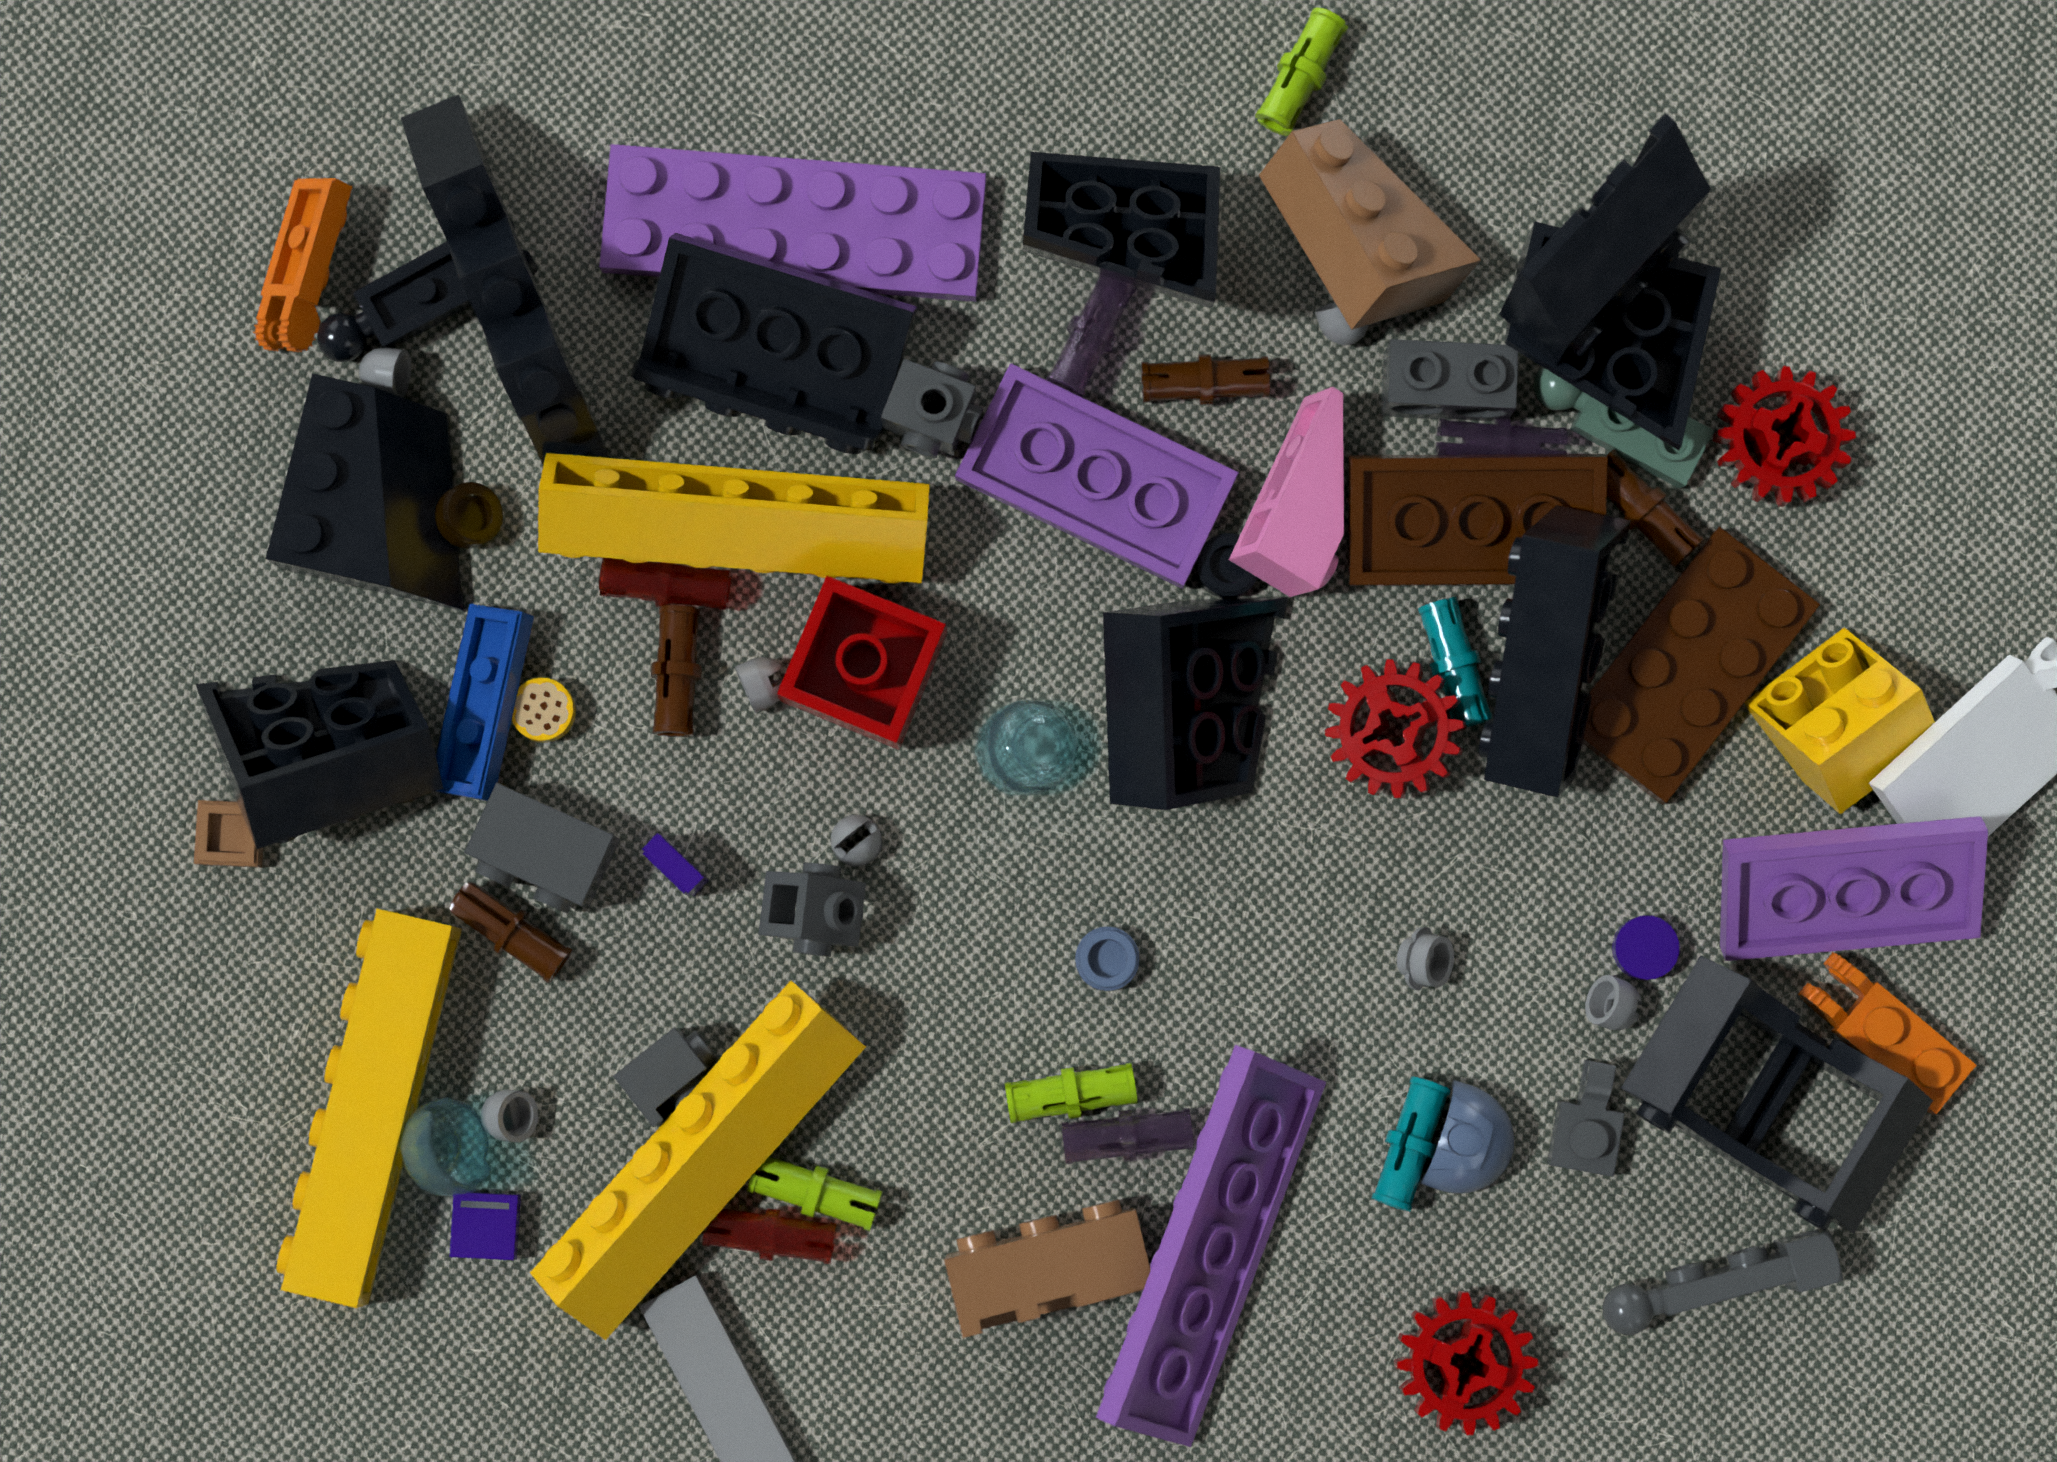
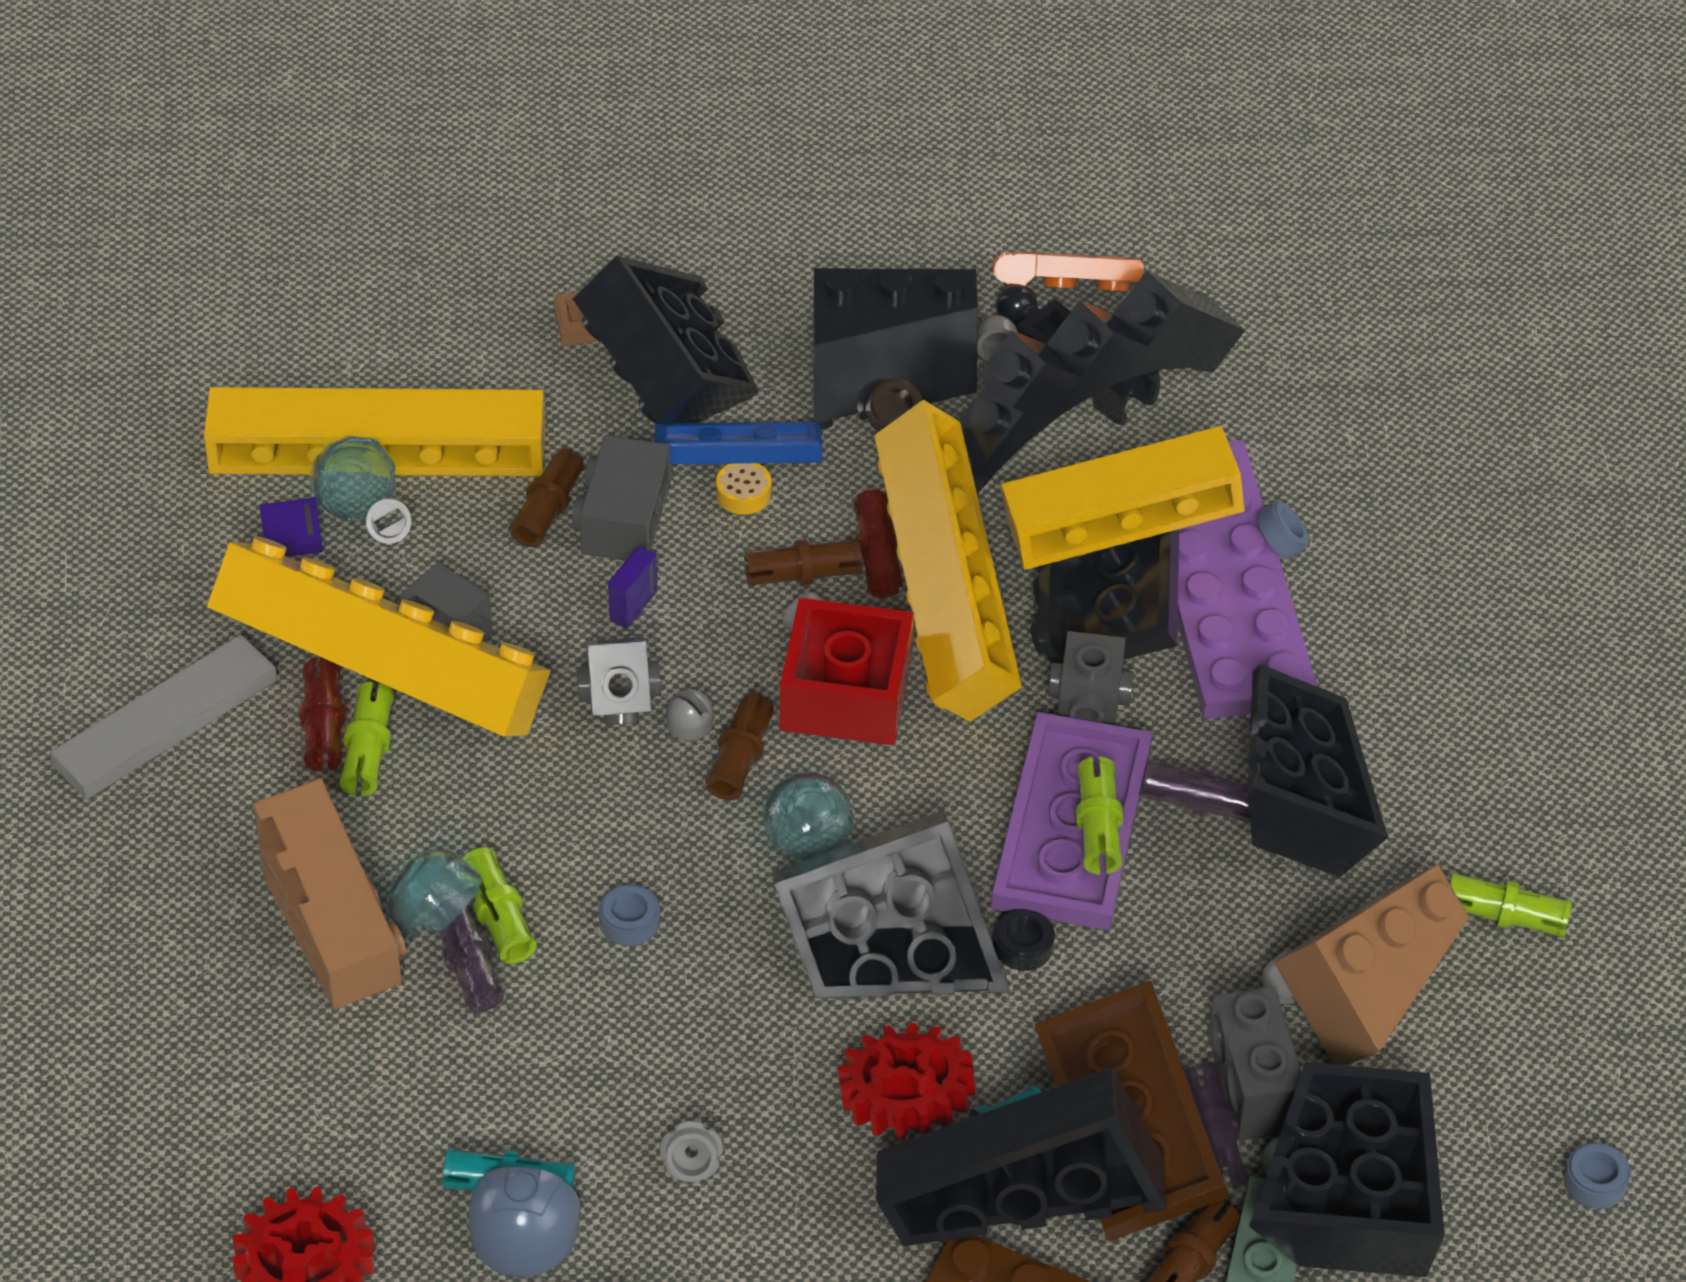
camera: 75 degrees right, 35 degrees down
(726, 306) = (1123, 497): none -> yellow brick
(755, 142) = (1283, 529): none -> sand blue tile
(915, 795) = (740, 747): none -> reddish brown axle
(1060, 1157) = (432, 891): none -> clear light blue hair
(1122, 450) = (1099, 815): none -> lime pin
(1205, 379) = (1191, 887): reddish brown pin -> none
(1211, 1248) = (375, 1015): medium lavender plate -> none
(1301, 506) = (1080, 962): bright pink slope -> none
(1606, 251) = (1418, 1082): black wedge -> none
(1628, 94) = (1597, 1175): none -> sand blue tile

